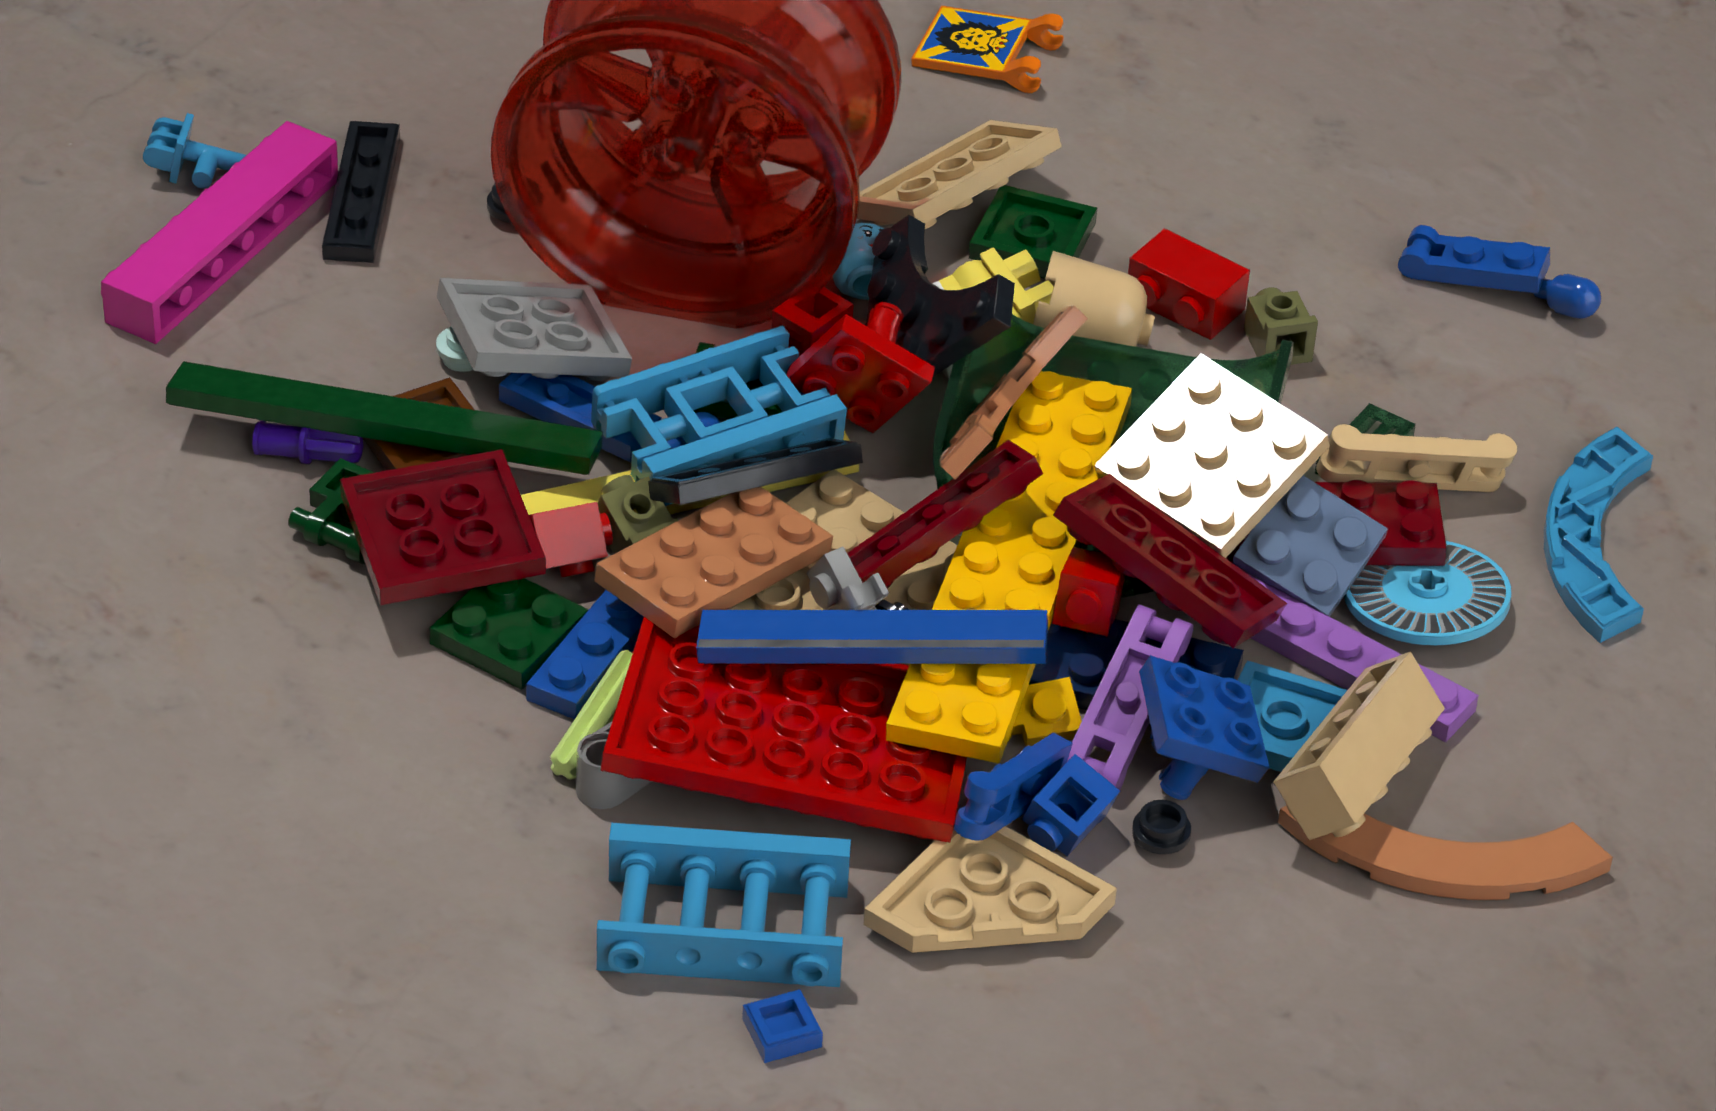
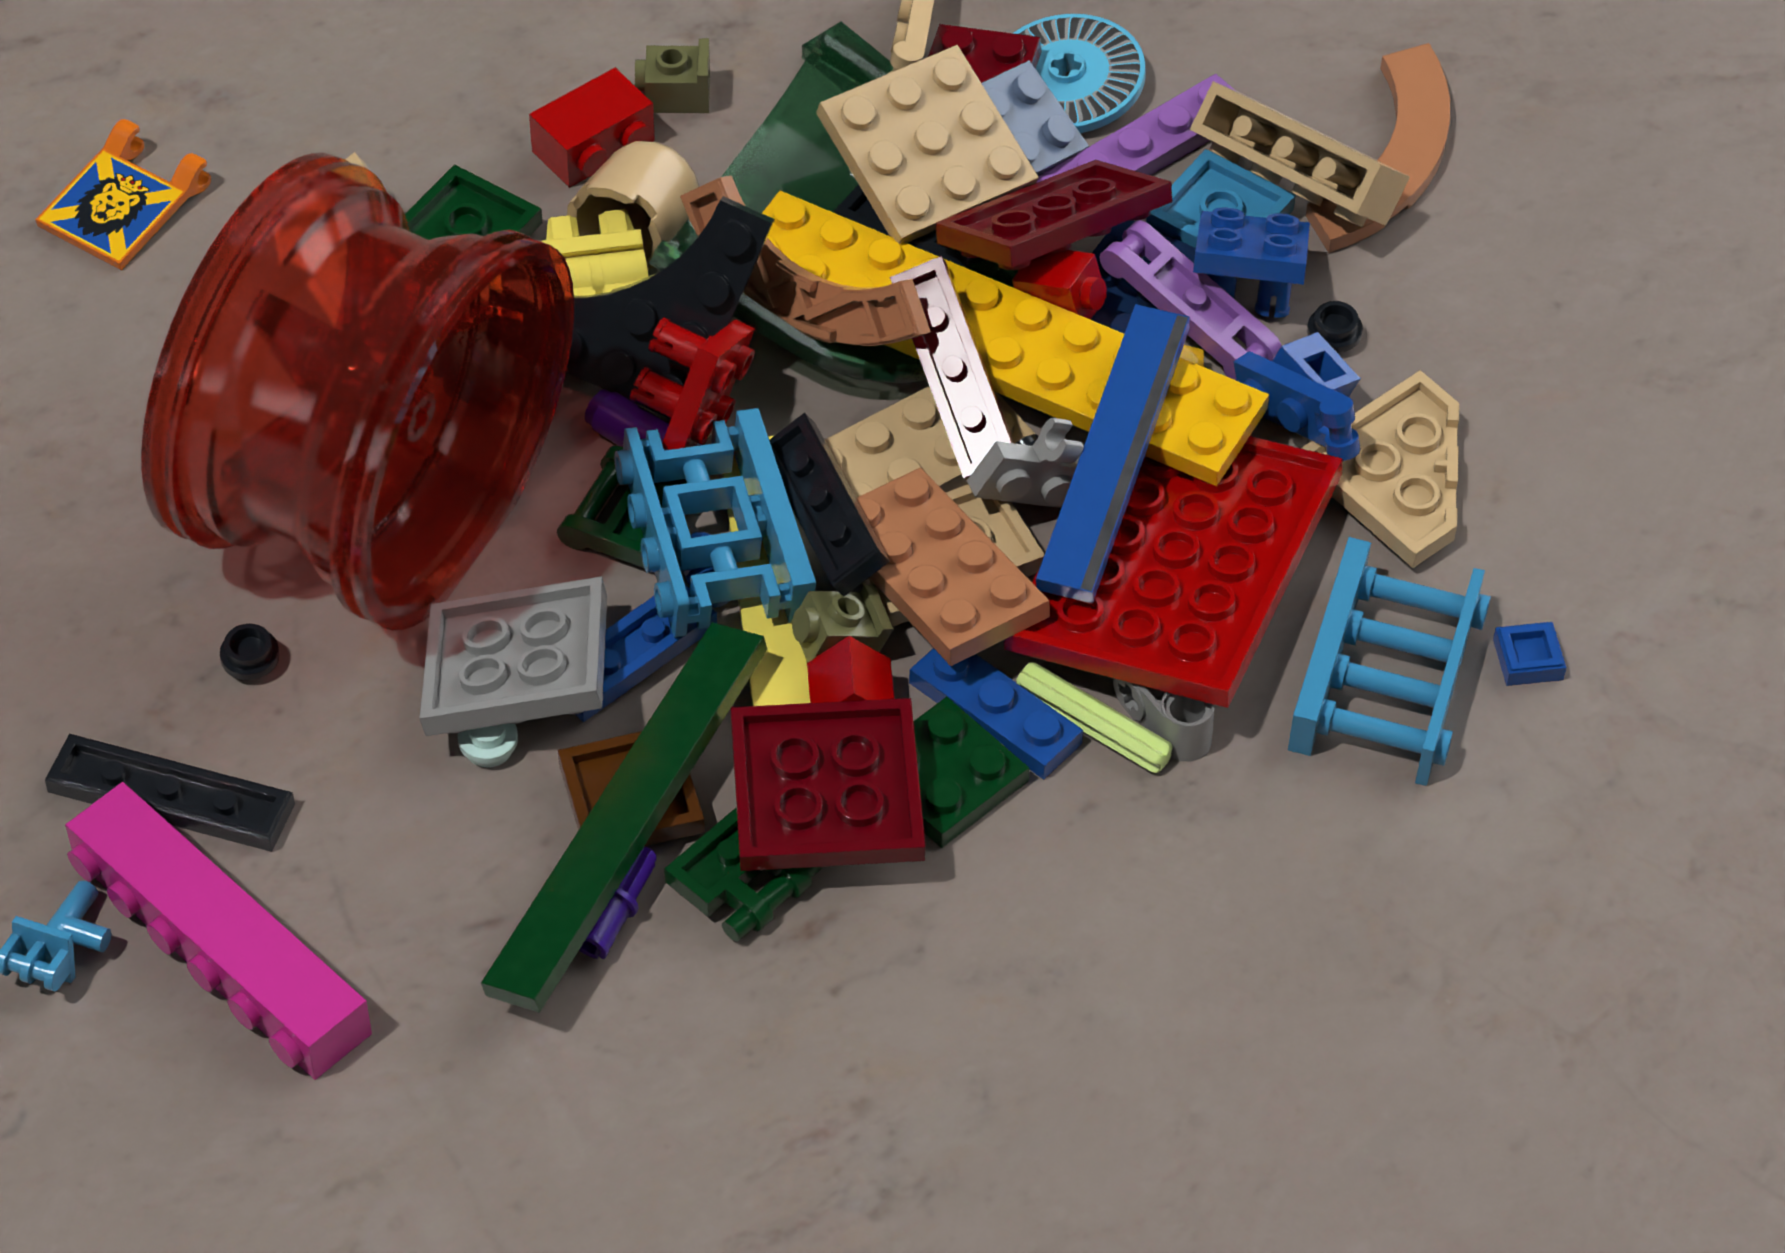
camera: 75 degrees left, 10 degrees up
(812, 319) = (575, 435): red brick -> none

